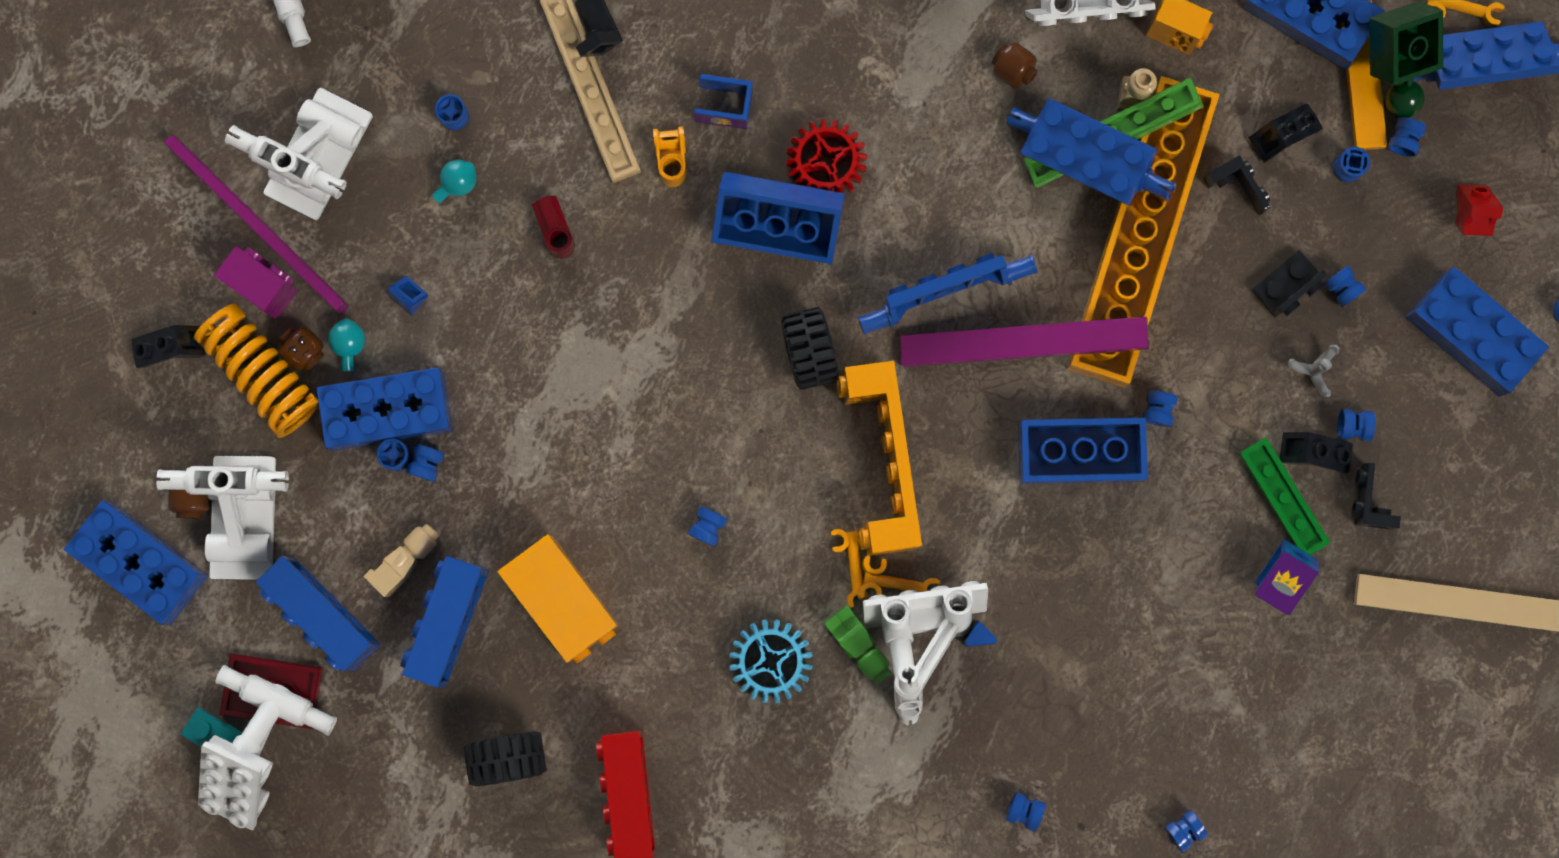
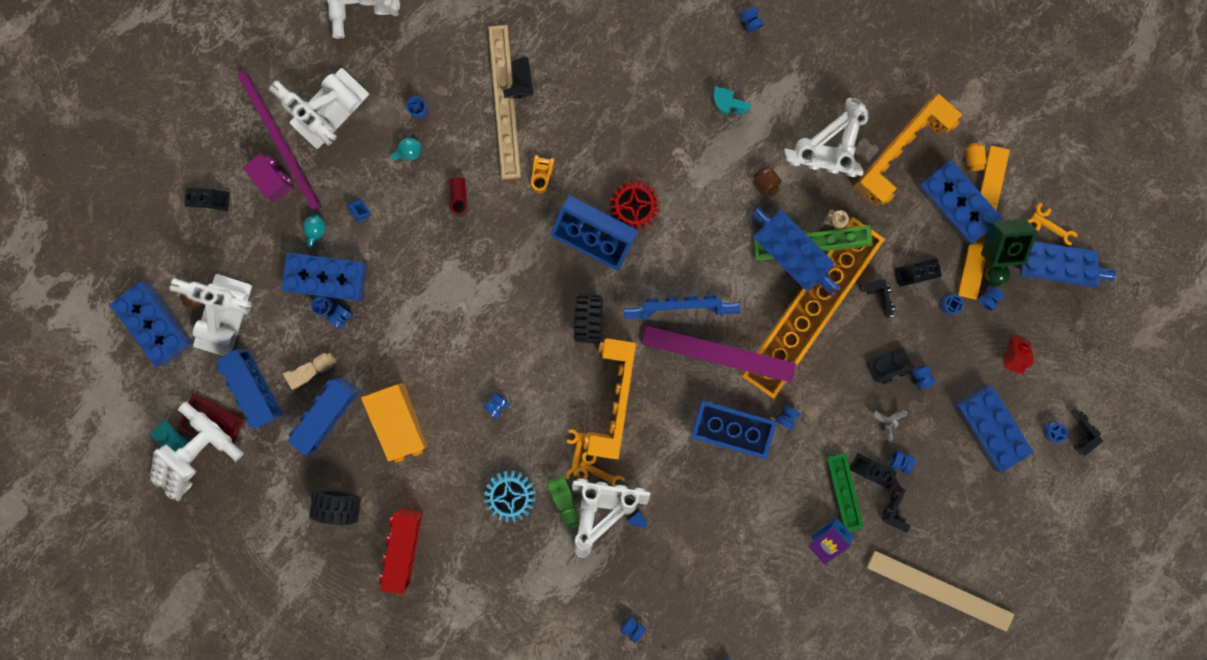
camera: 20 degrees right, 5 degrees up
(234, 317) = (231, 202): light orange piece -> none
(300, 348) = (285, 224): reddish brown head -> none
(727, 85) = (599, 146): blue piece -> none

